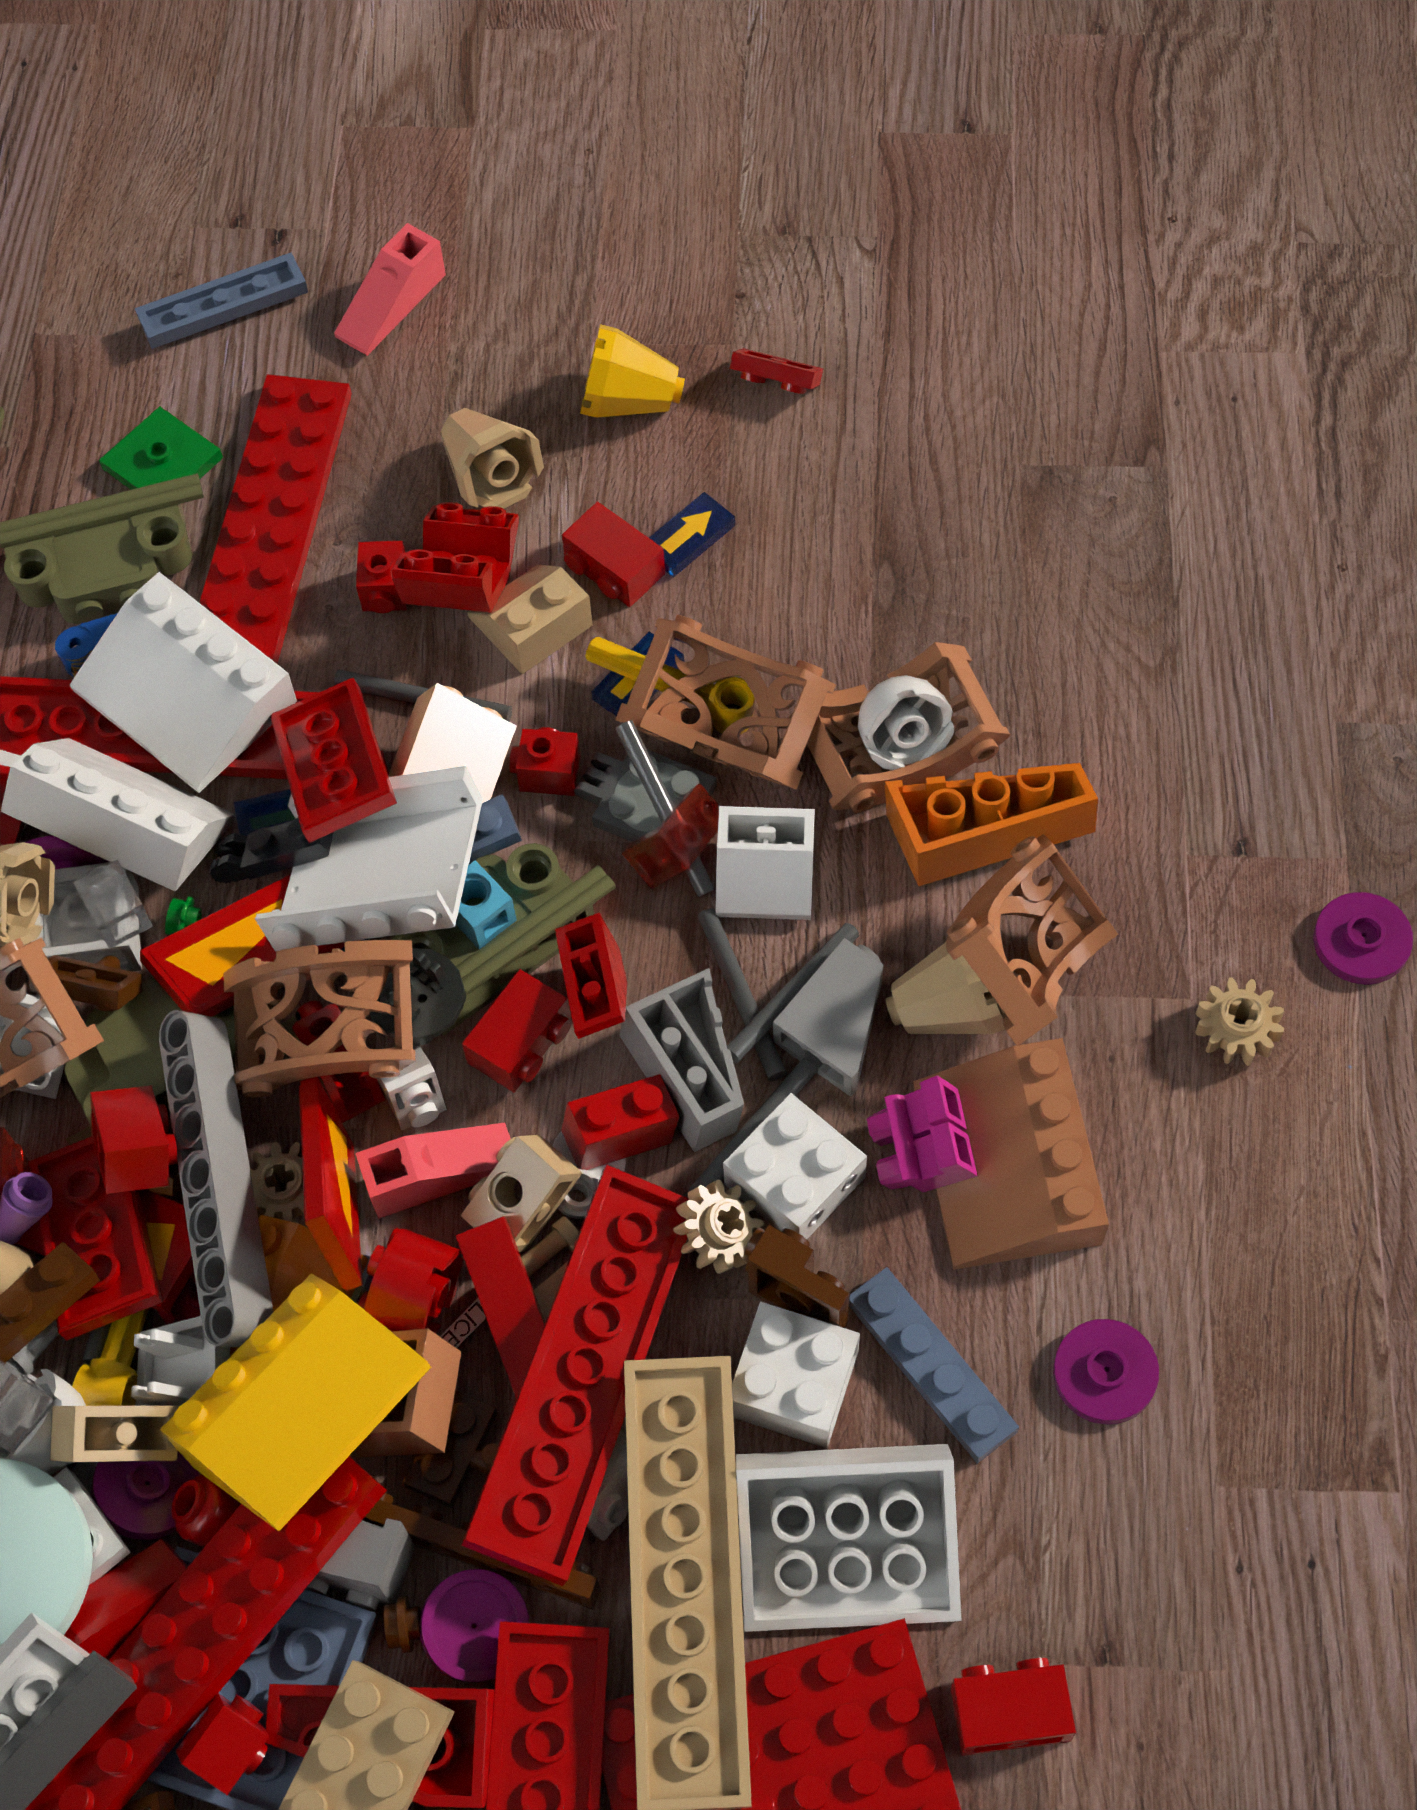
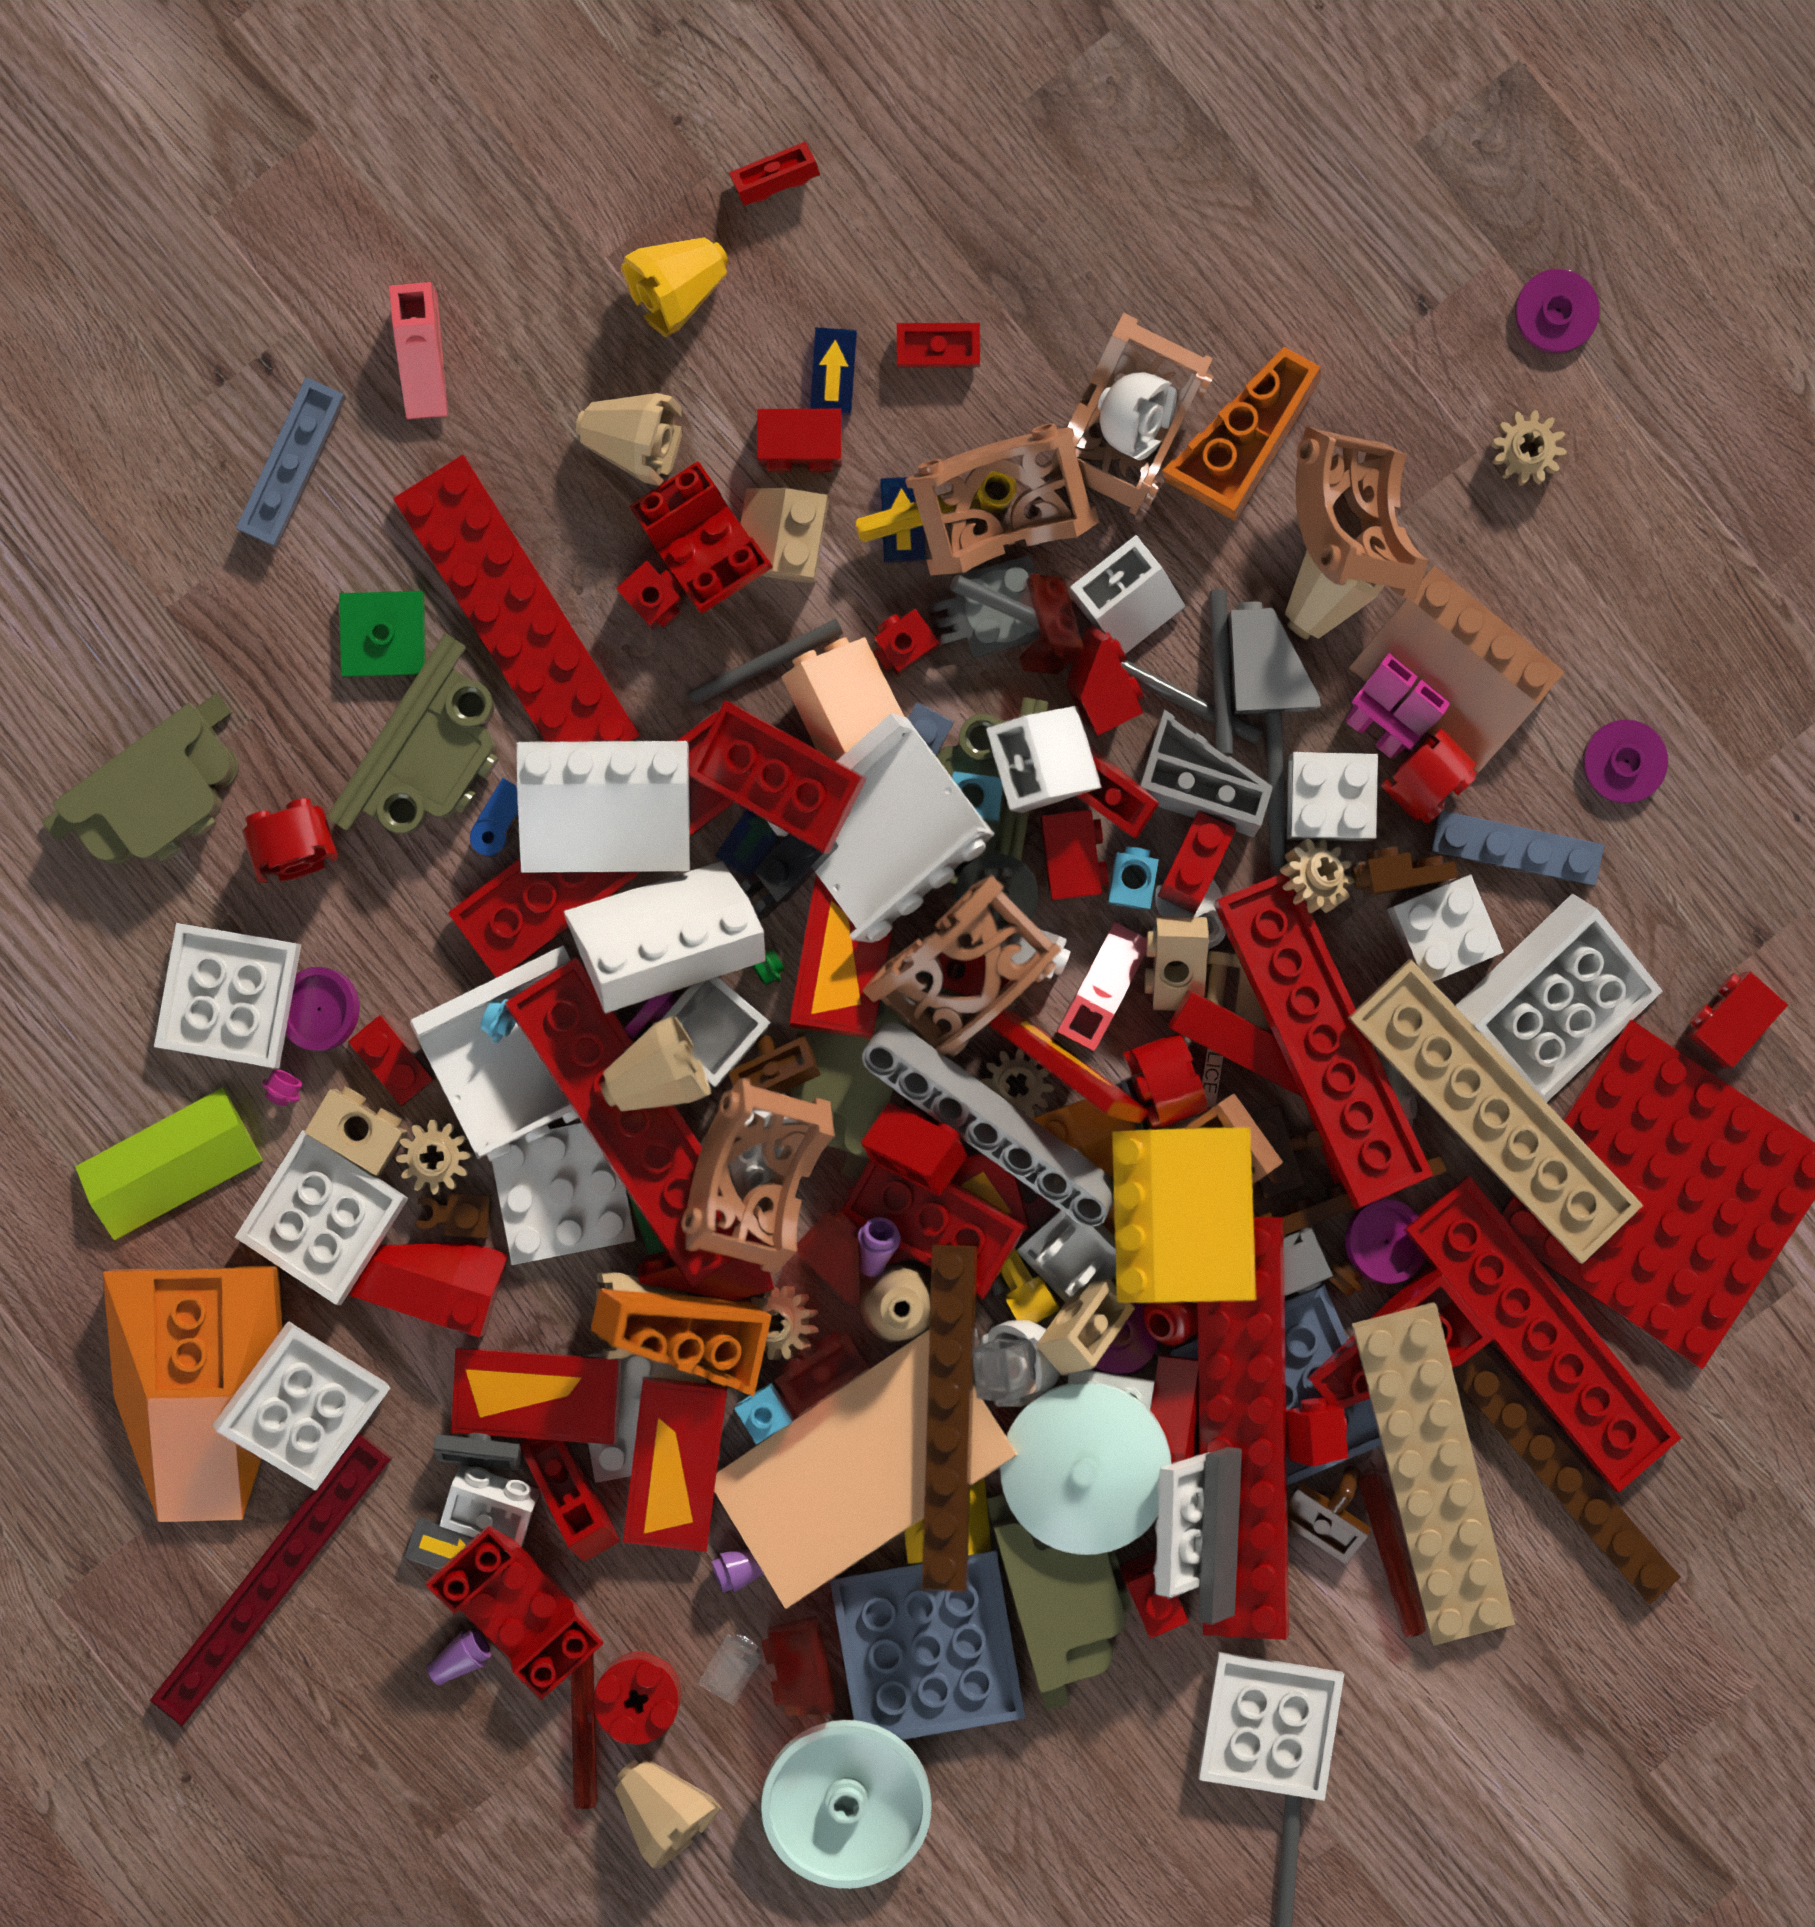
camera: 45 degrees left, 25 degrees up
(113, 903) = (739, 1007): clear brick -> none
(528, 1095) = (1132, 898): none -> medium azure brick
(557, 906) = (1043, 758): none -> white slope
(672, 904) = (1101, 685): none -> red slope
(790, 573) = (938, 345): none -> red plate
(900, 1218) = (1430, 776): none -> red brick

